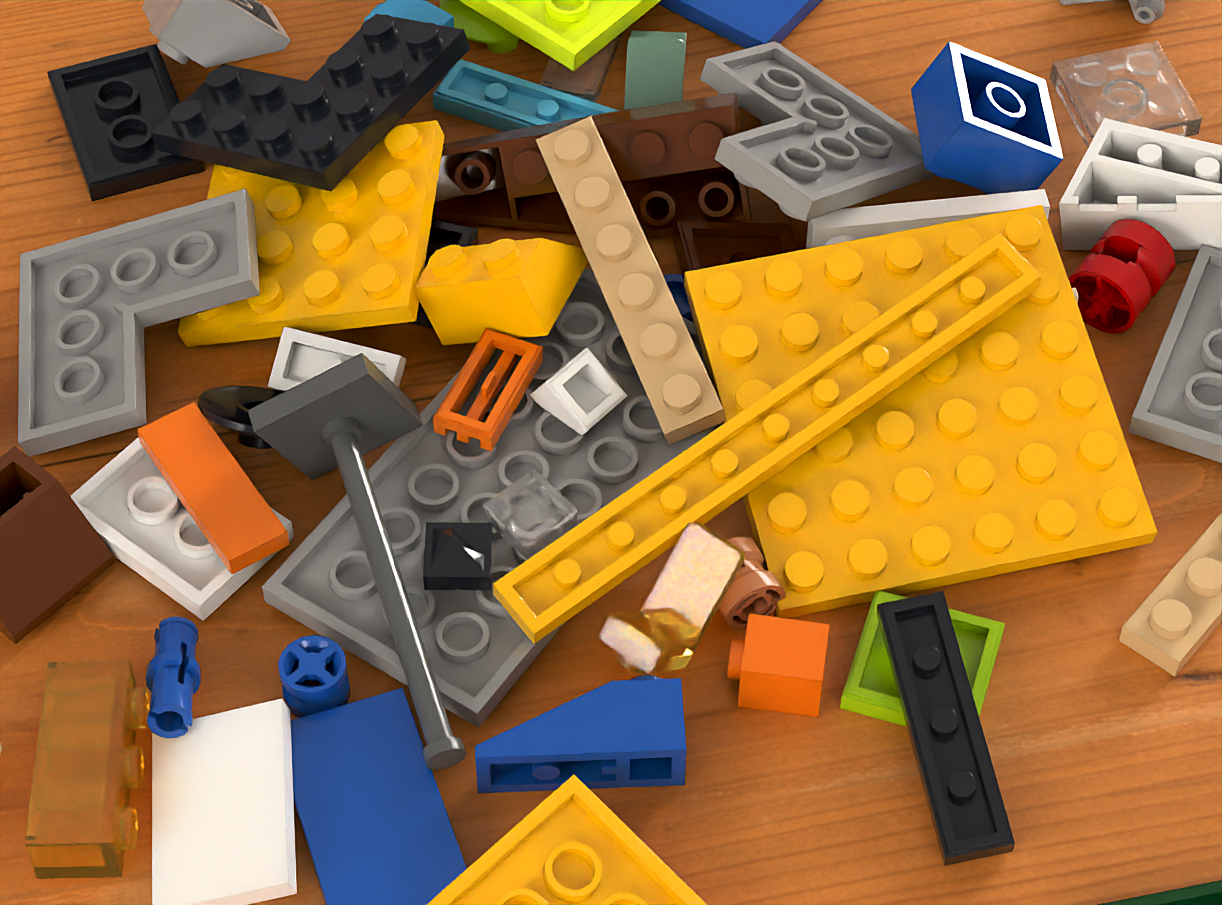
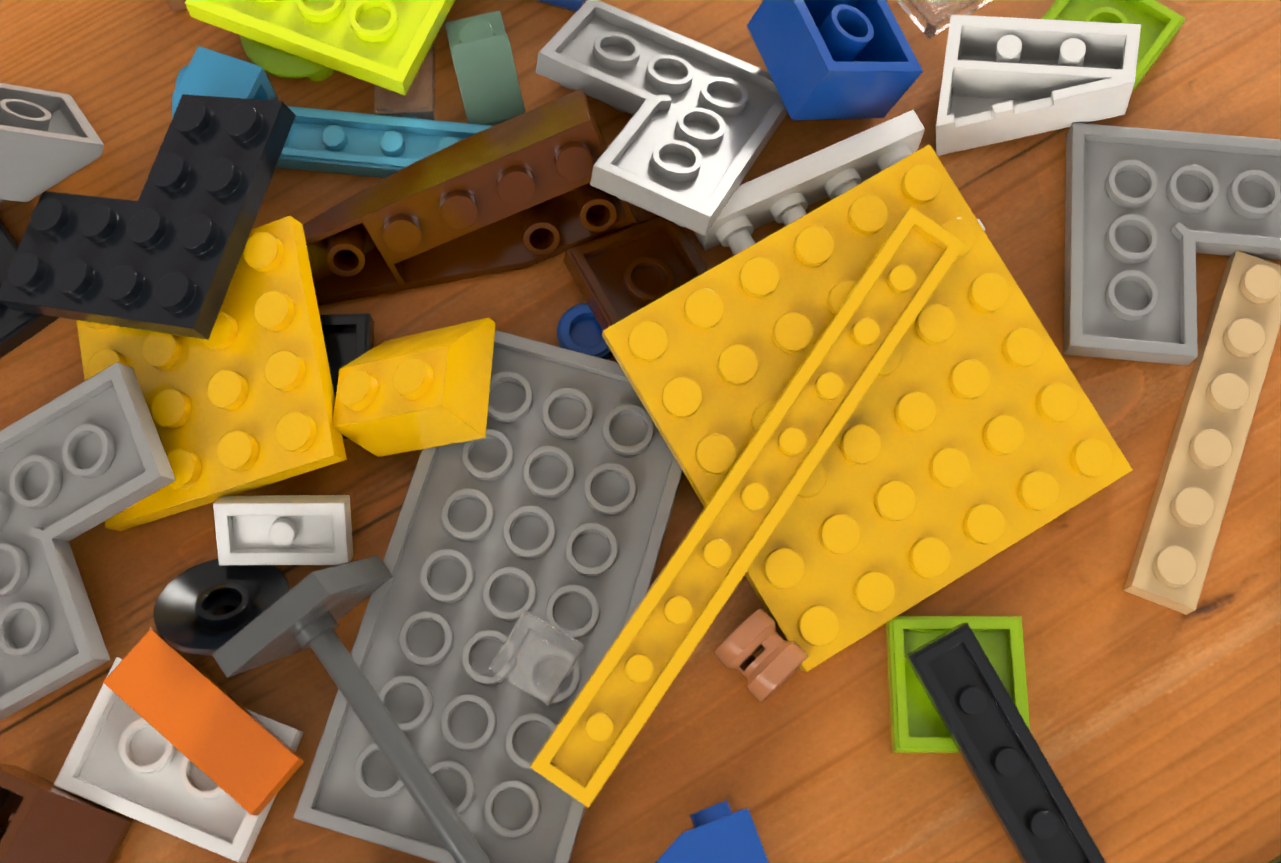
camera: 15 degrees left, 20 degrees up
(458, 556) = (479, 726): black tile -> none
(470, 426) = (439, 566): orange tile -> none
(579, 392) = (535, 487): white slope -> none
(631, 281) = (546, 347): tan plate -> none
(678, 606) = (710, 716): clear yellow bracket -> none
(780, 664) = (830, 739): orange brick -> none
(1122, 275) = (1011, 181): red wheel -> none

